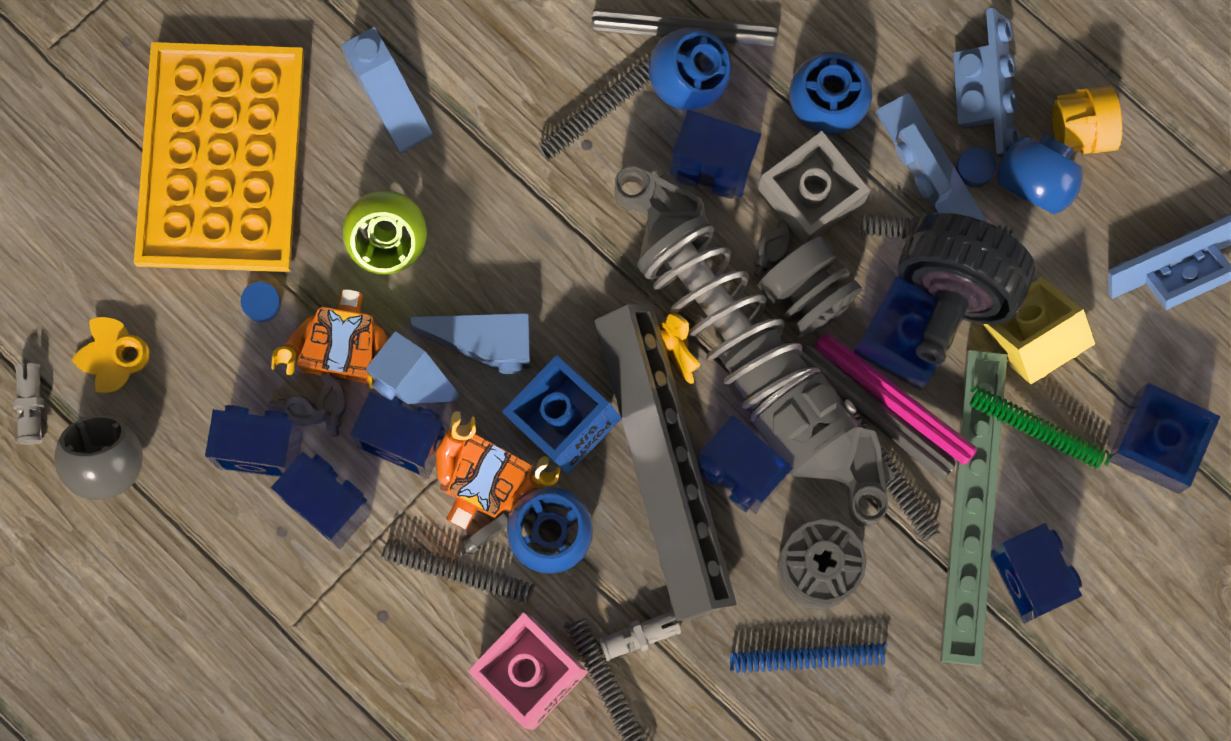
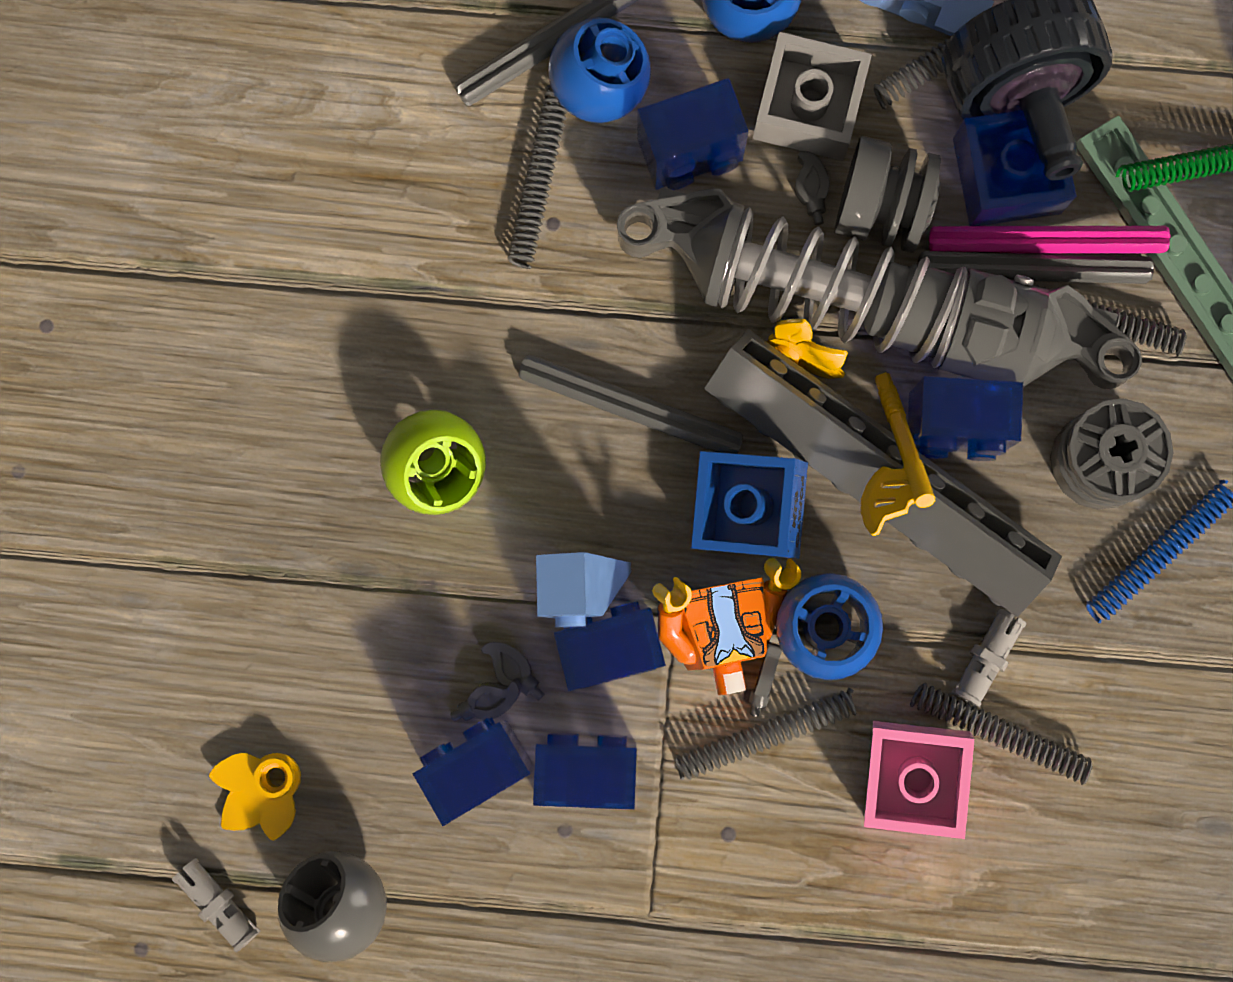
camera: 30 degrees left, 5 degrees up
(219, 157) = (205, 514): yellow plate -> none
(260, 302) = (362, 624): blue tile -> none
(334, 342) = (473, 606): torso -> none
(386, 89) = (316, 320): medium blue slope -> none
(491, 340) = (615, 488): medium blue slope -> none
(540, 296) = (630, 405): none -> dark grey axle
(673, 472) = (912, 475): none -> yellow piece
(1043, 333) = (1144, 70): light yellow slope -> none

